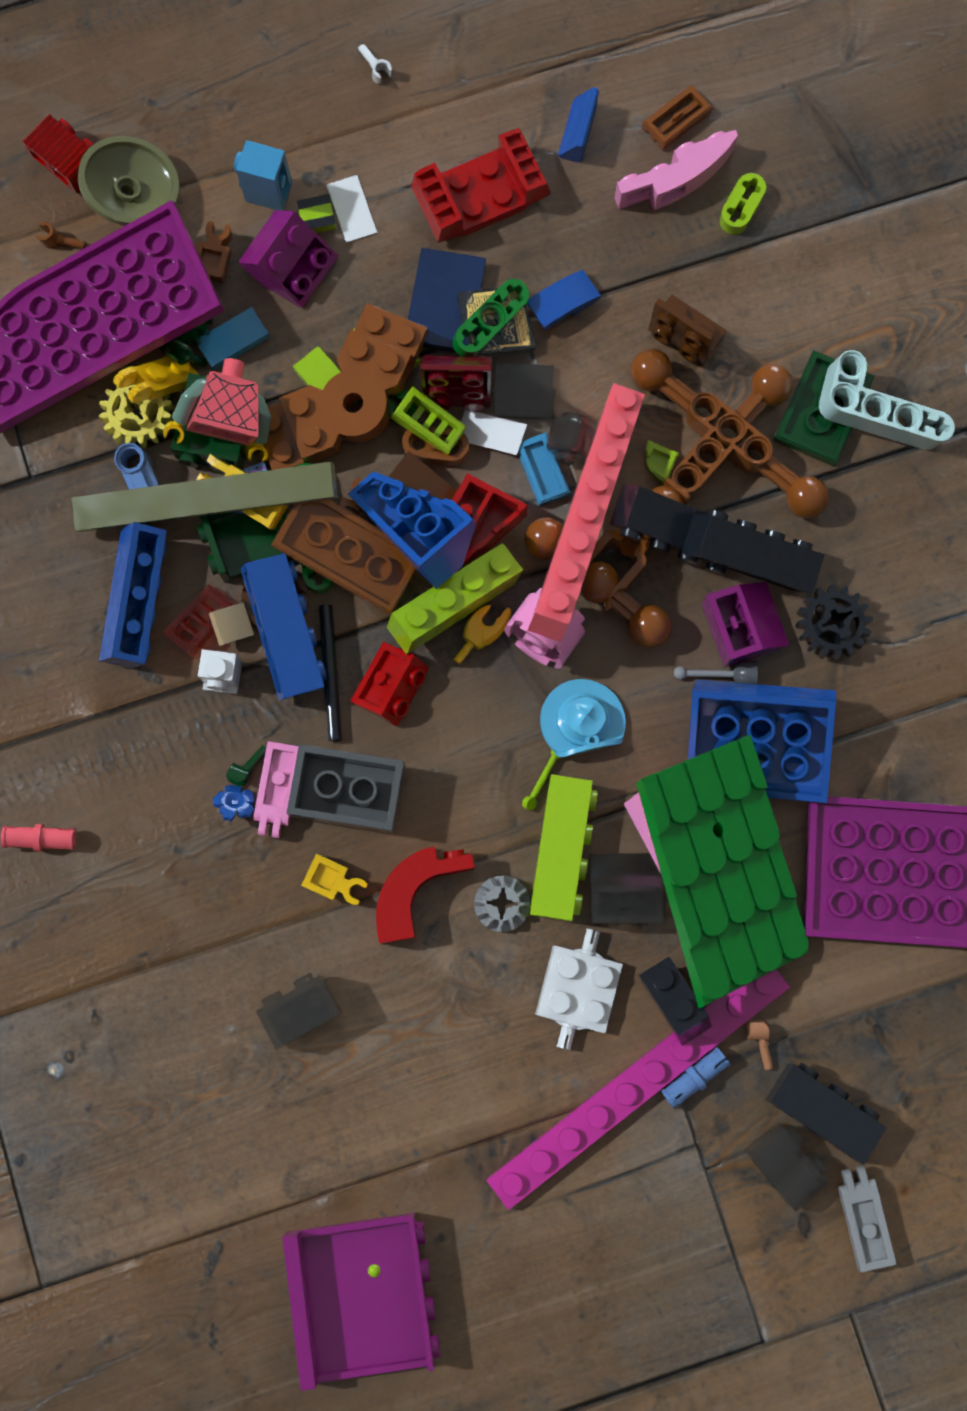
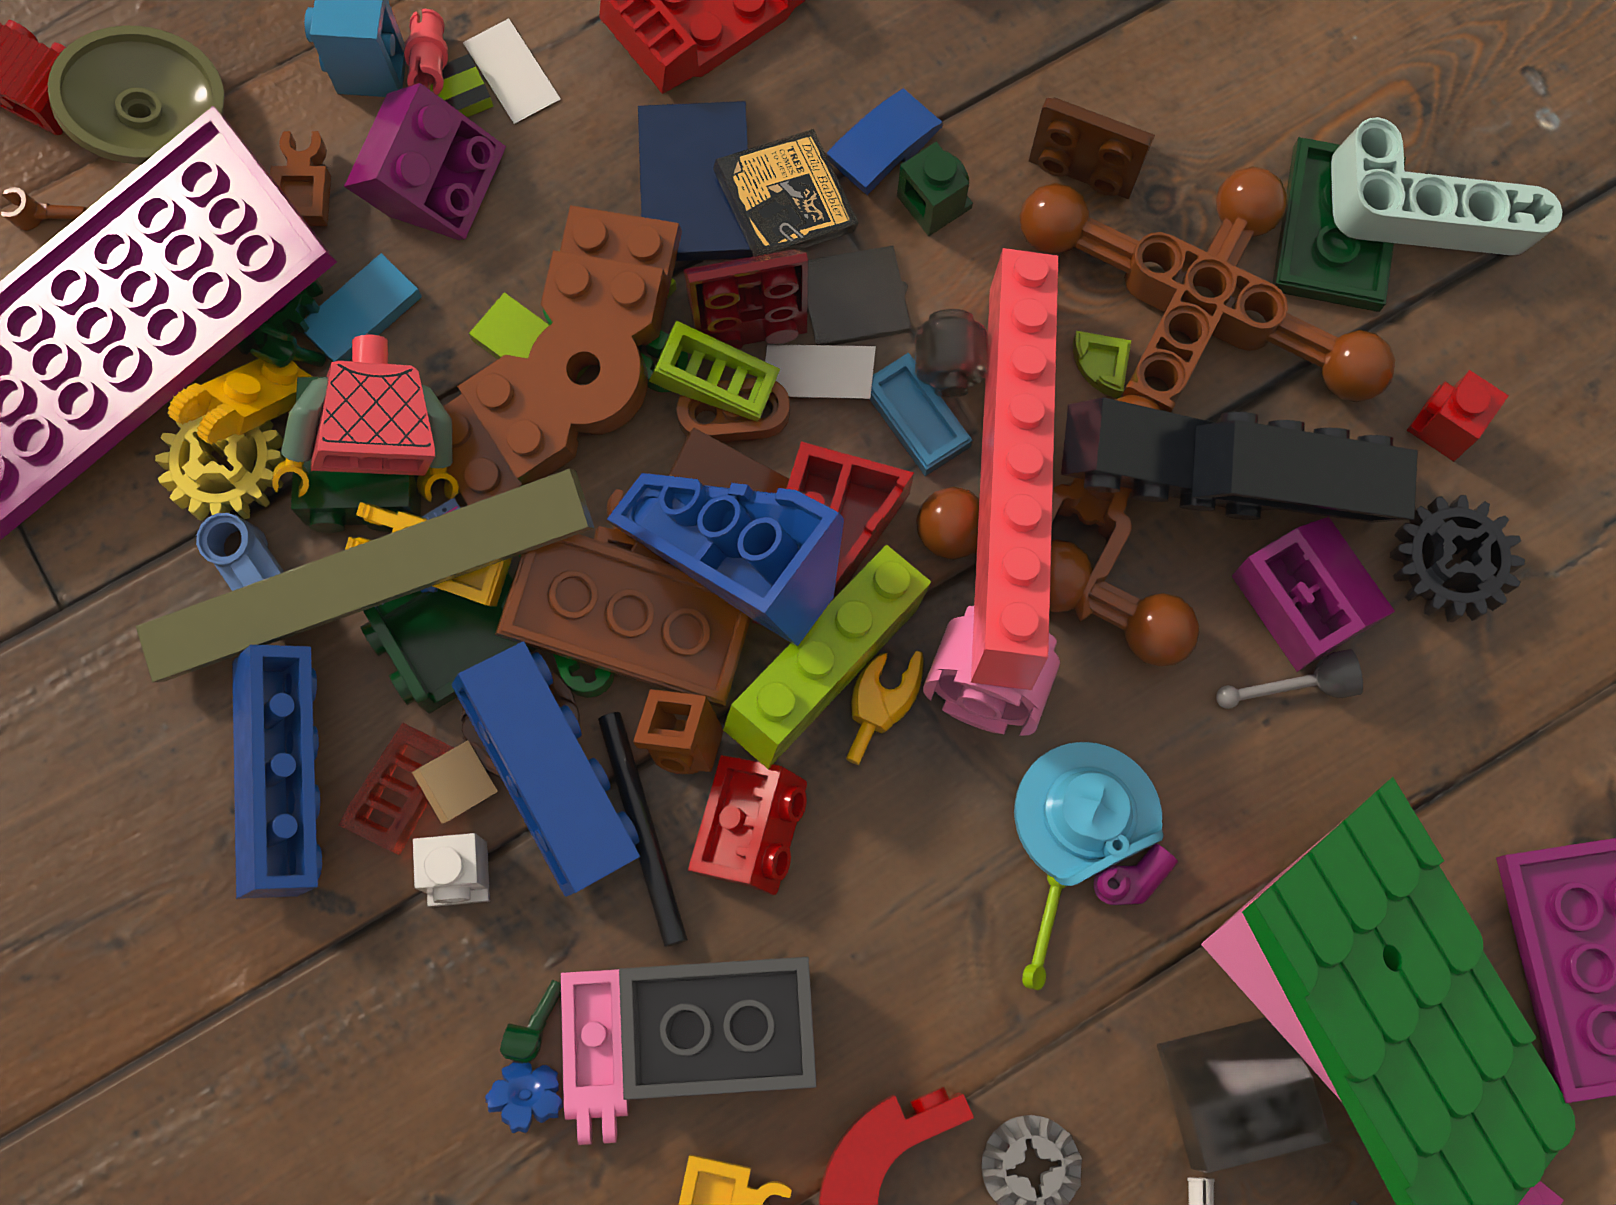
camera: 15 degrees left, 5 degrees down
(302, 188) = (426, 50): none -> coral pin
(360, 630) = (675, 743): none -> dark orange brick
(493, 303) = (779, 166): green beam -> none
(561, 848) = (1113, 1049): lime brick -> none
(585, 336) = (941, 184): none -> dark green brick
(598, 764) = (1134, 882): none -> magenta arm
(787, 726) = (1446, 742): blue slope -> none
(858, 538) = (1457, 414): none -> red brick

